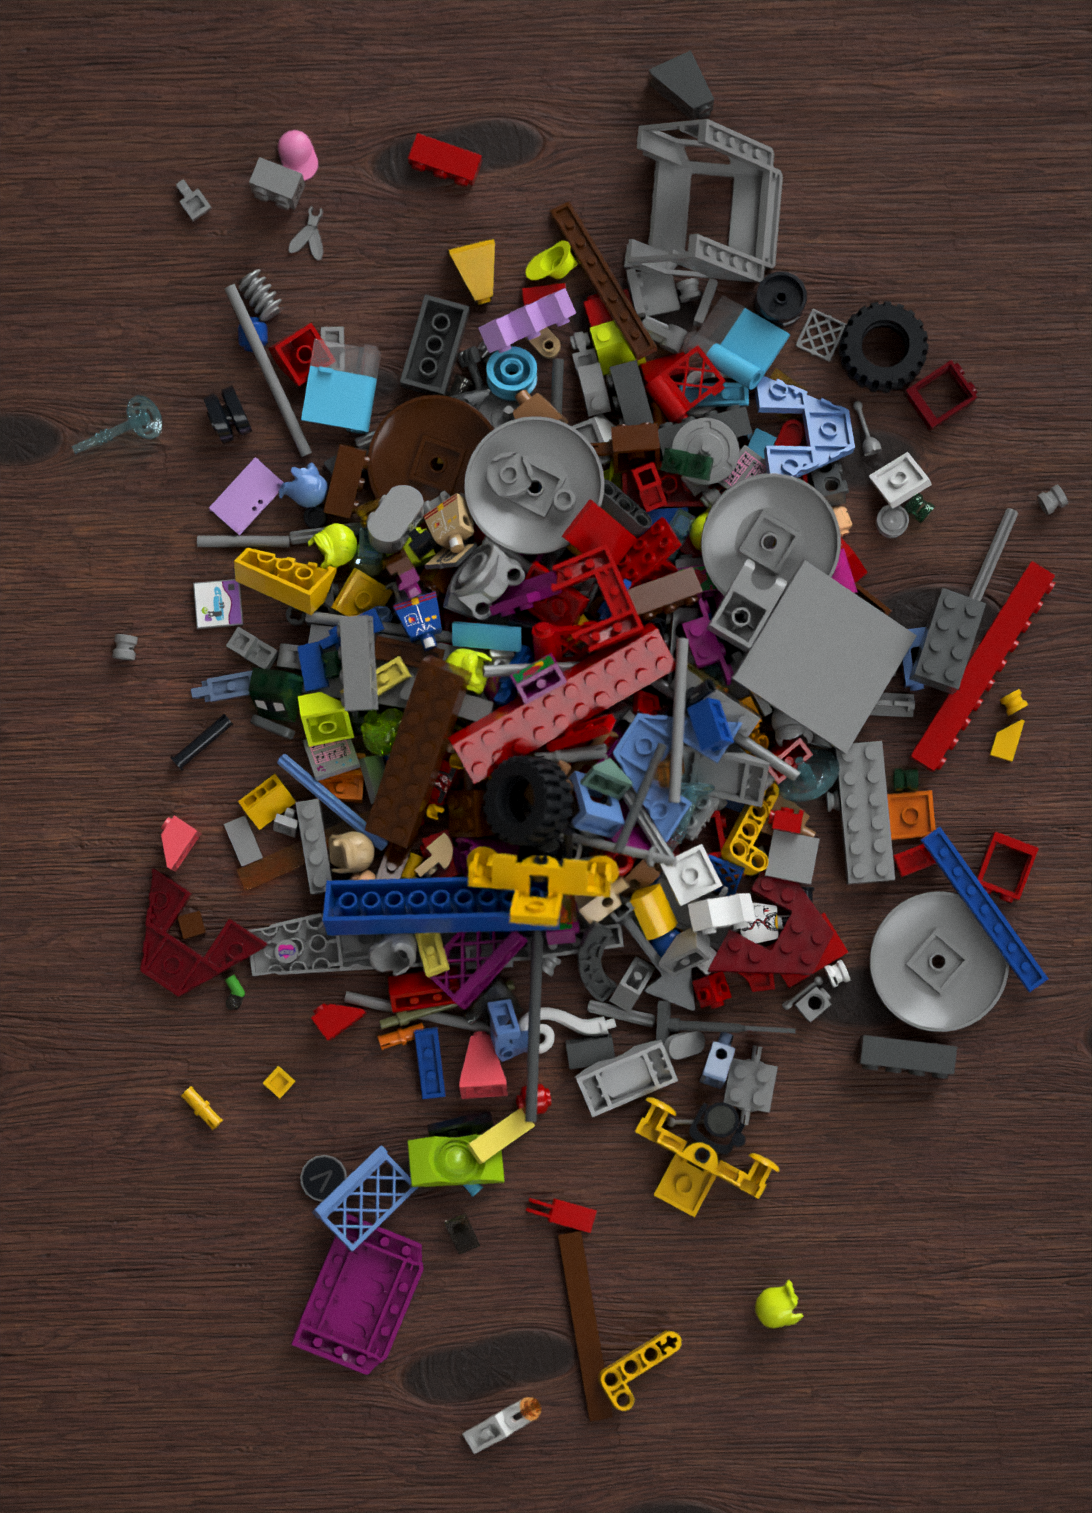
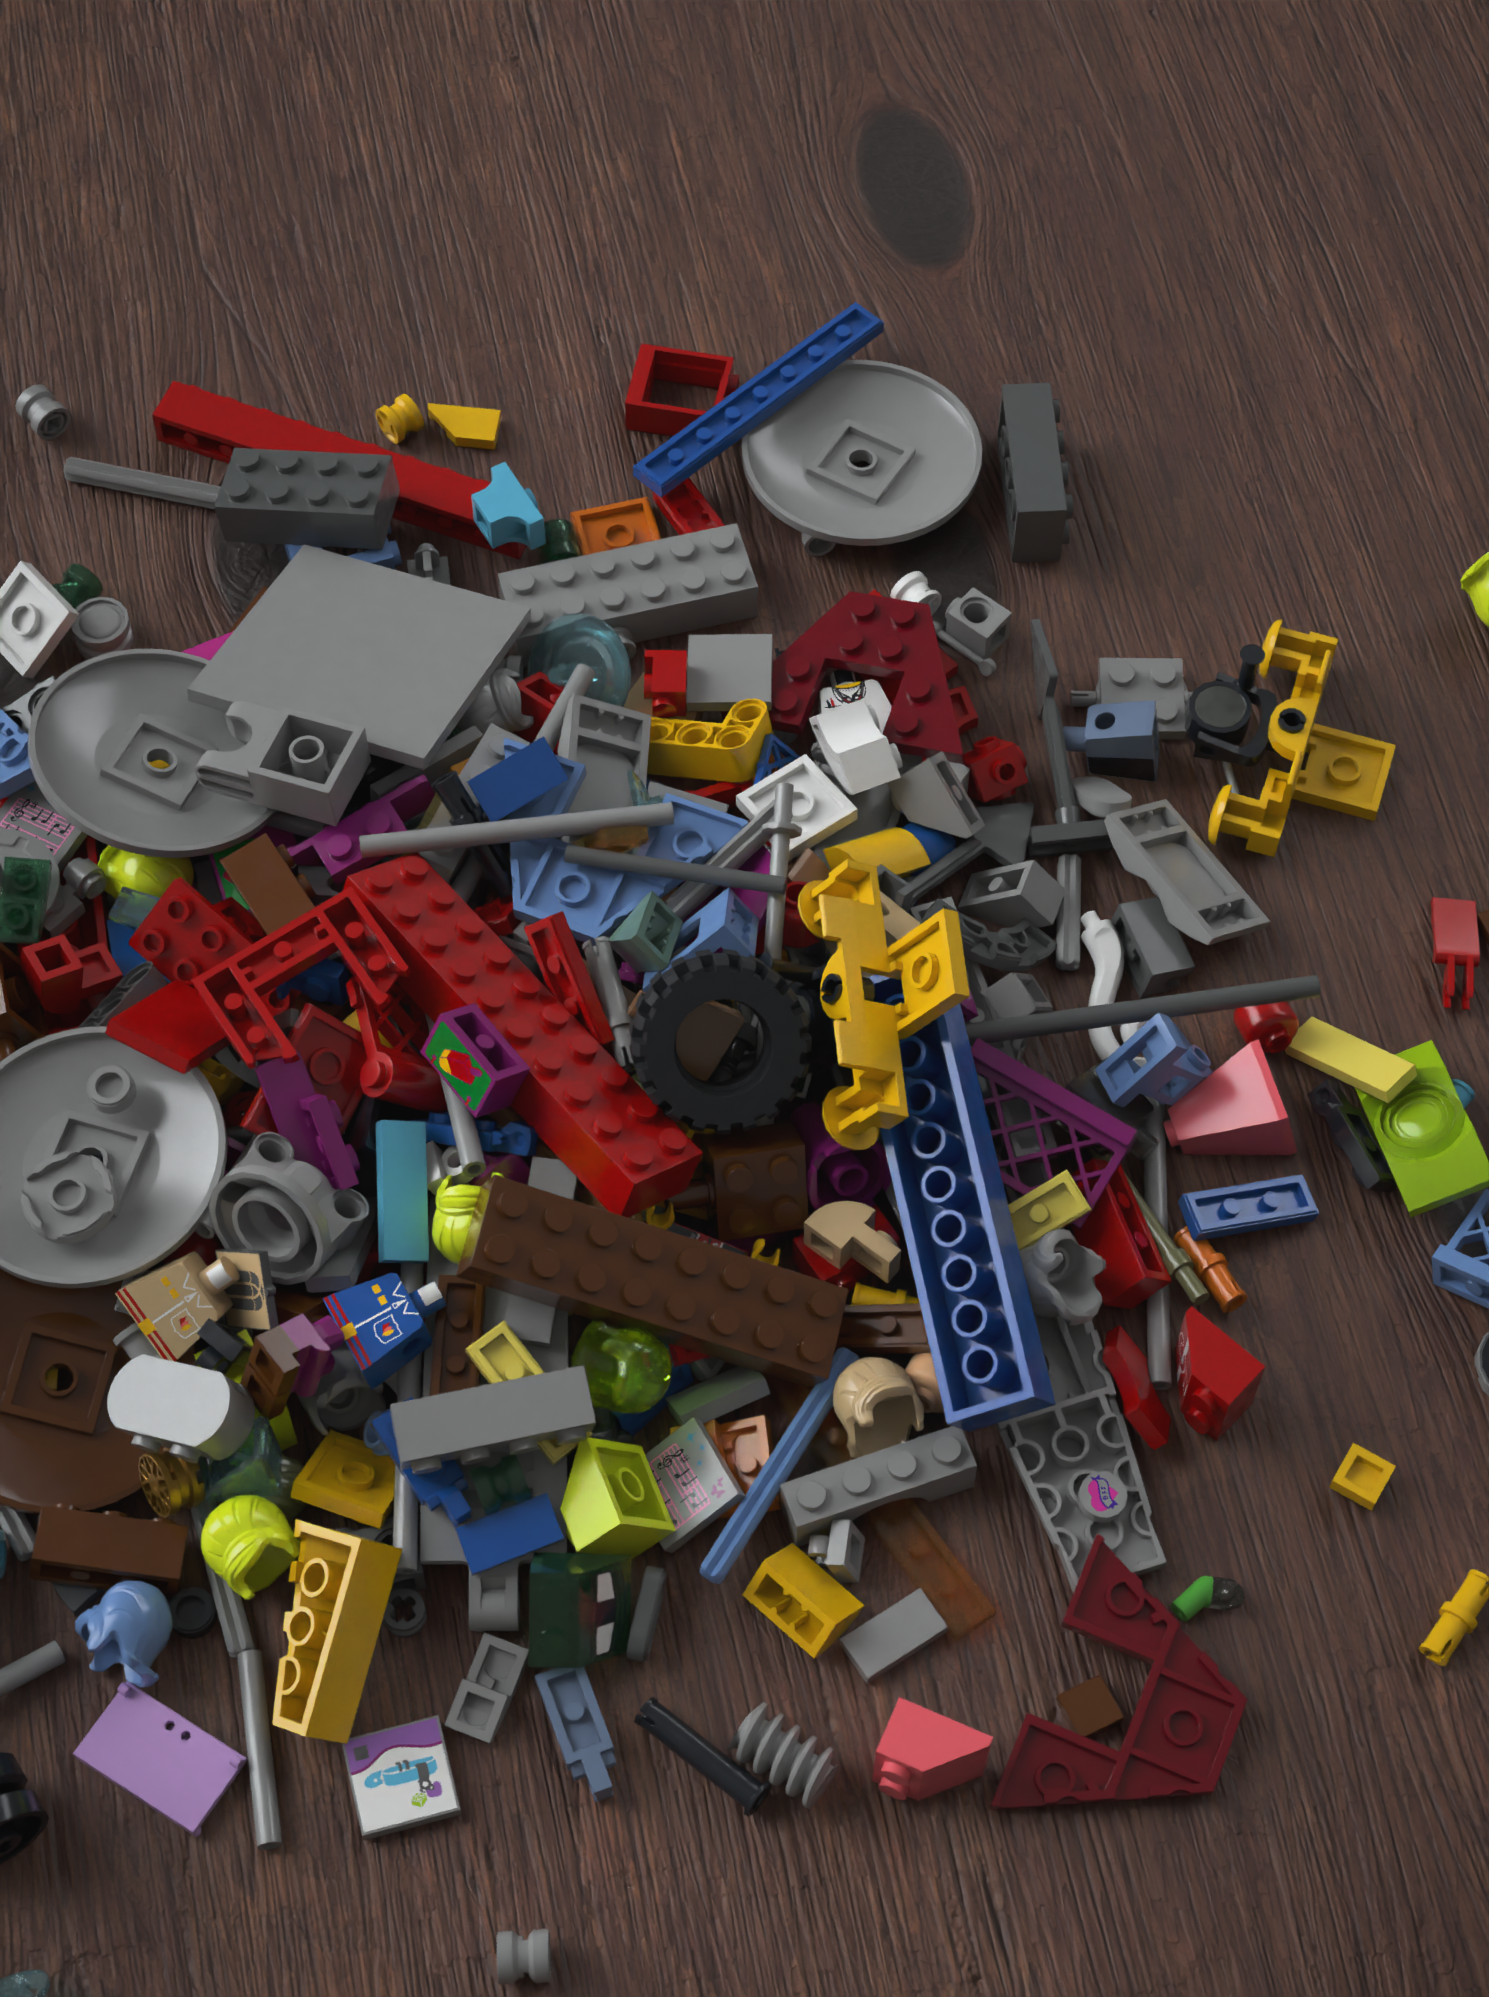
camera: 105 degrees left, 25 degrees down
(193, 778) = (784, 1754): none -> light grey piece
(350, 981) = (1139, 1398): none -> red tile
(560, 970) = (1017, 996): none -> light grey slope
(921, 751) = (508, 511): none -> medium azure brick

